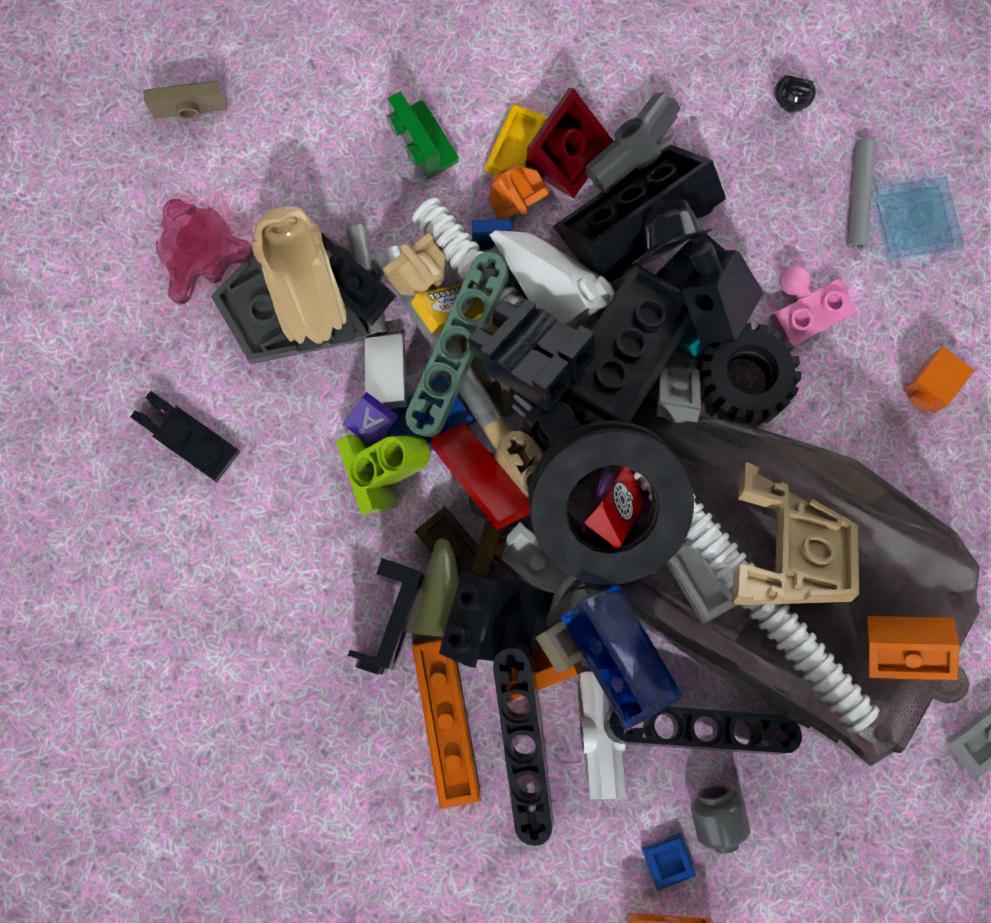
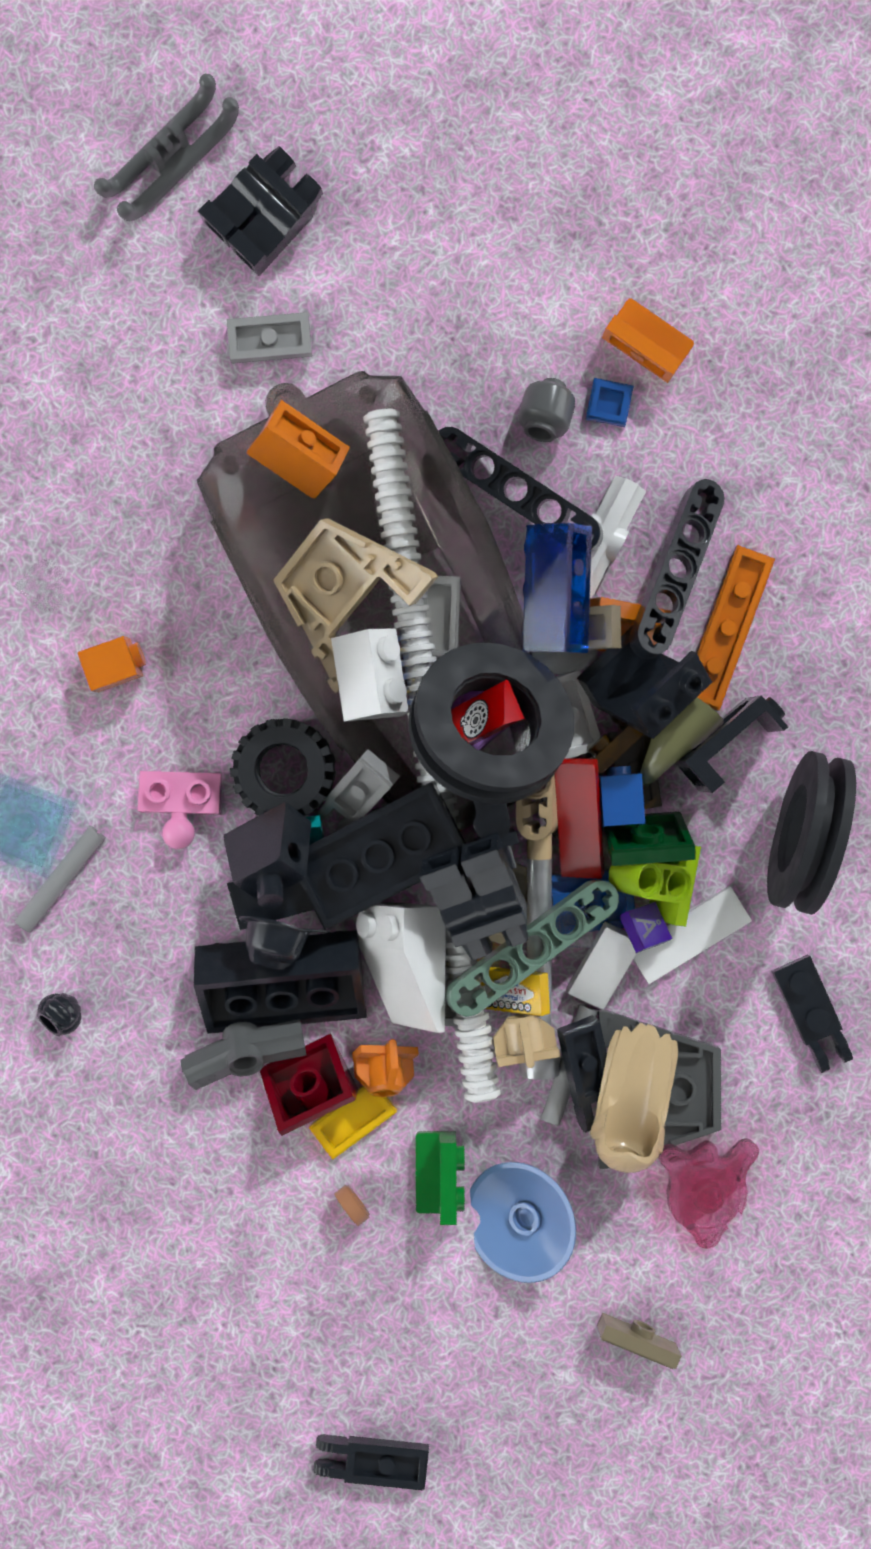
camera: 155 degrees left, 10 degrees up
(273, 575) = (811, 832): none -> black tyre
(319, 451) = (705, 926): none -> white tile
(332, 135) = (524, 1222): none -> medium blue hat
(412, 493) = (658, 840): none -> dark green plate
(456, 513) = (621, 797): none -> blue brick
(476, 77) = (352, 1205): none -> nougat tile
(483, 228) = (435, 1043): blue tile -> none
(733, 489) = (370, 675): none -> white slope

